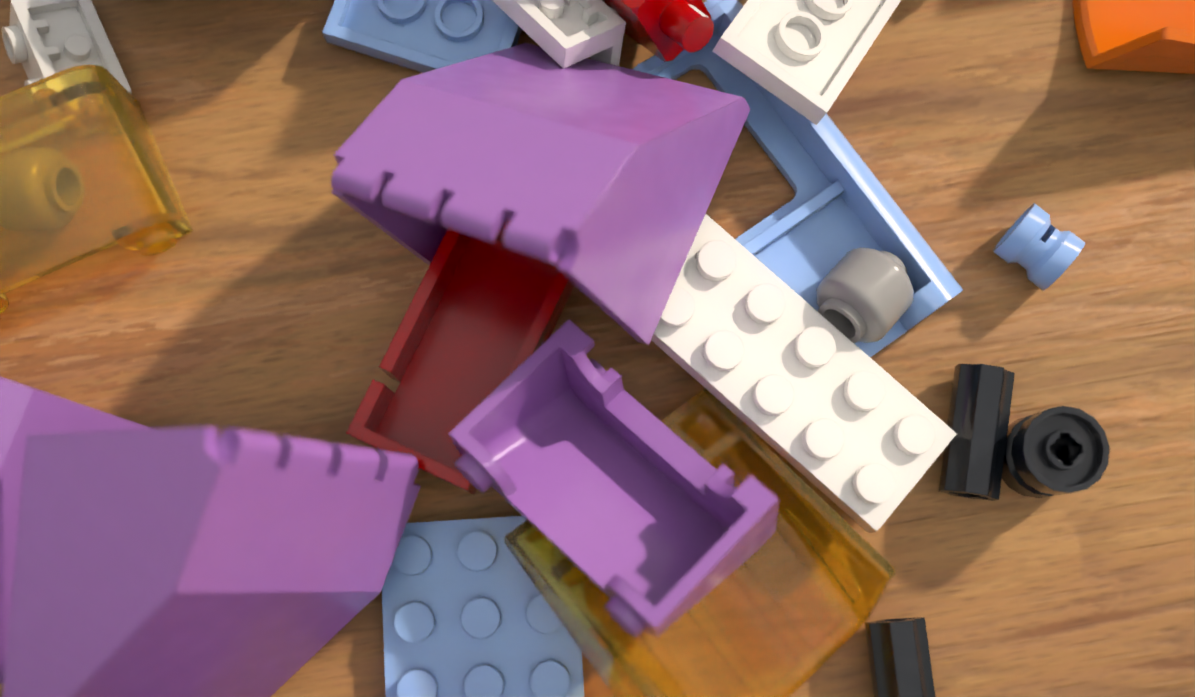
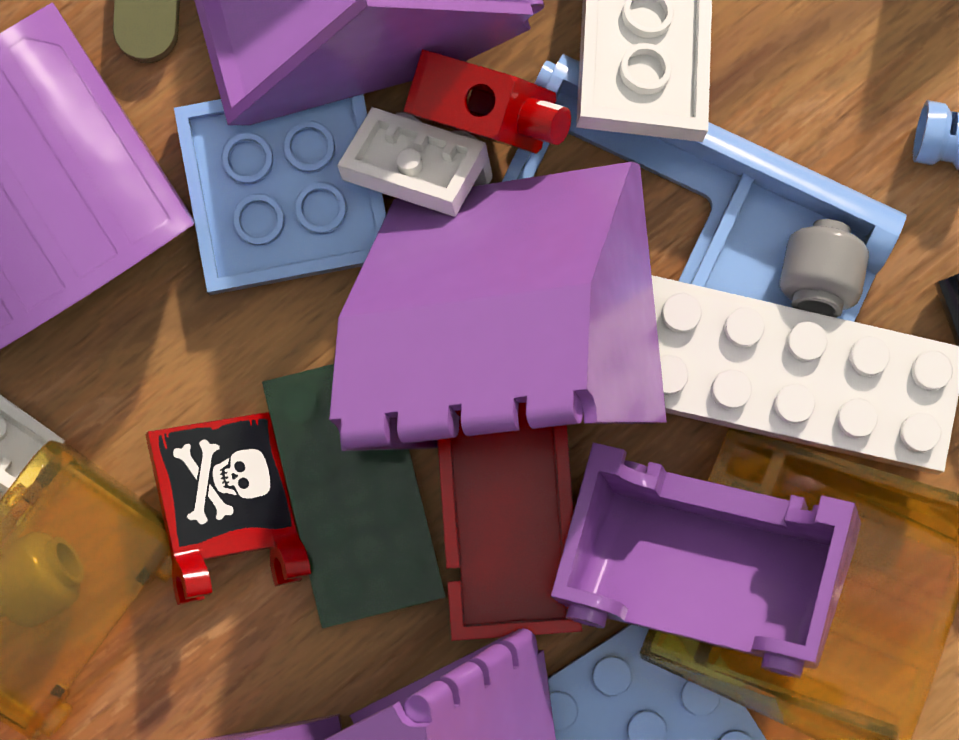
camera: 25 degrees left, 5 degrees up
(234, 207) = (224, 498): none -> flag
(336, 293) = (351, 508): none -> clear green plate

